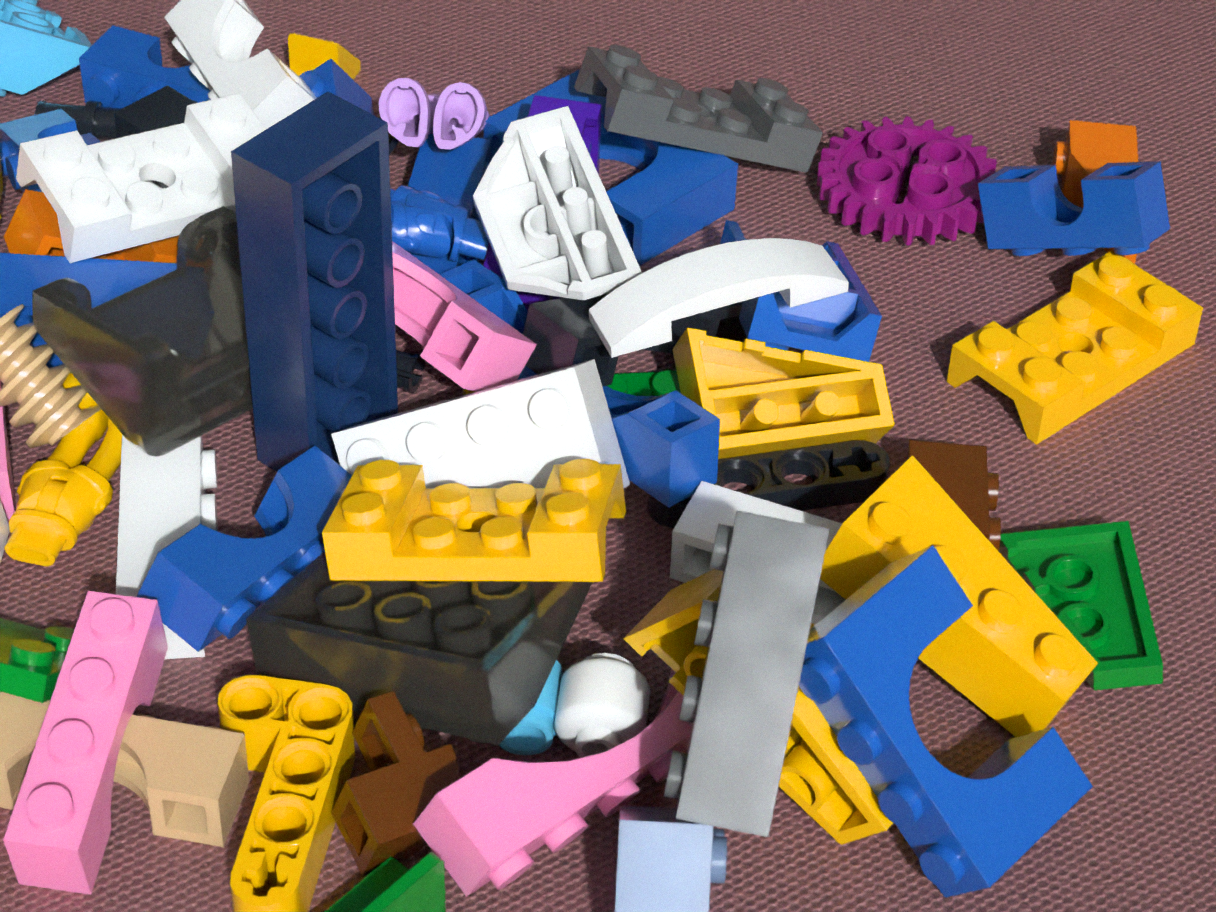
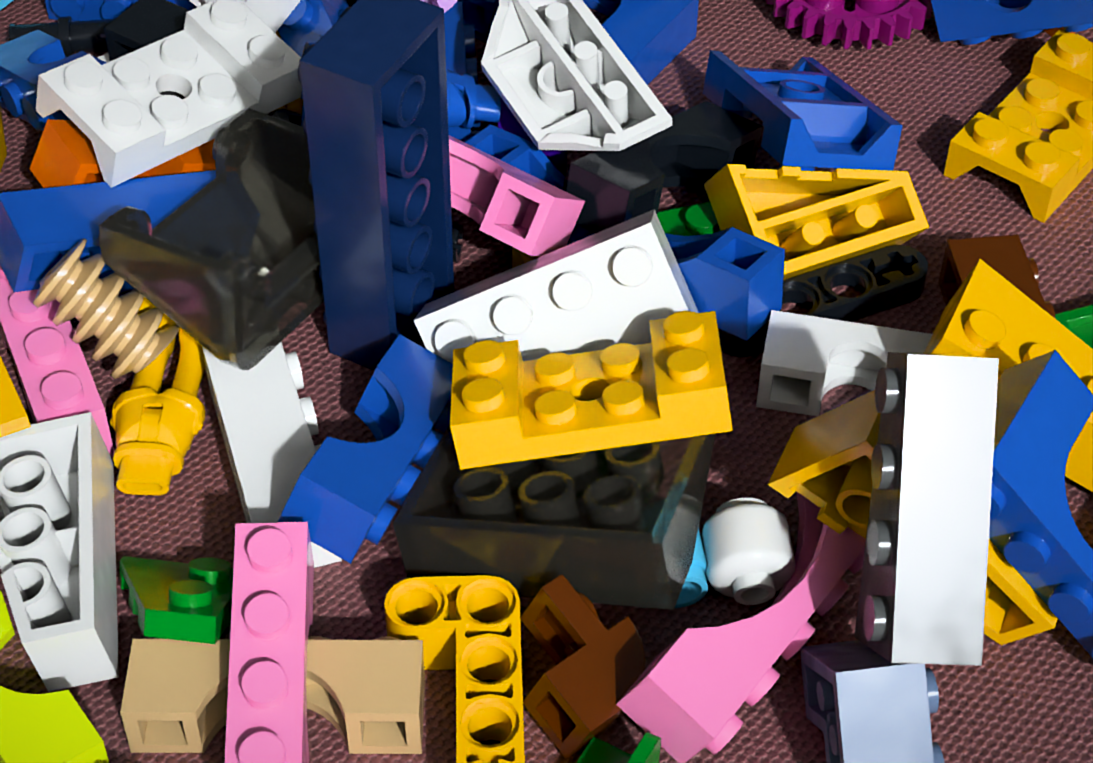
camera: 10 degrees left, 5 degrees up
(708, 279) = (688, 148): white slope -> none

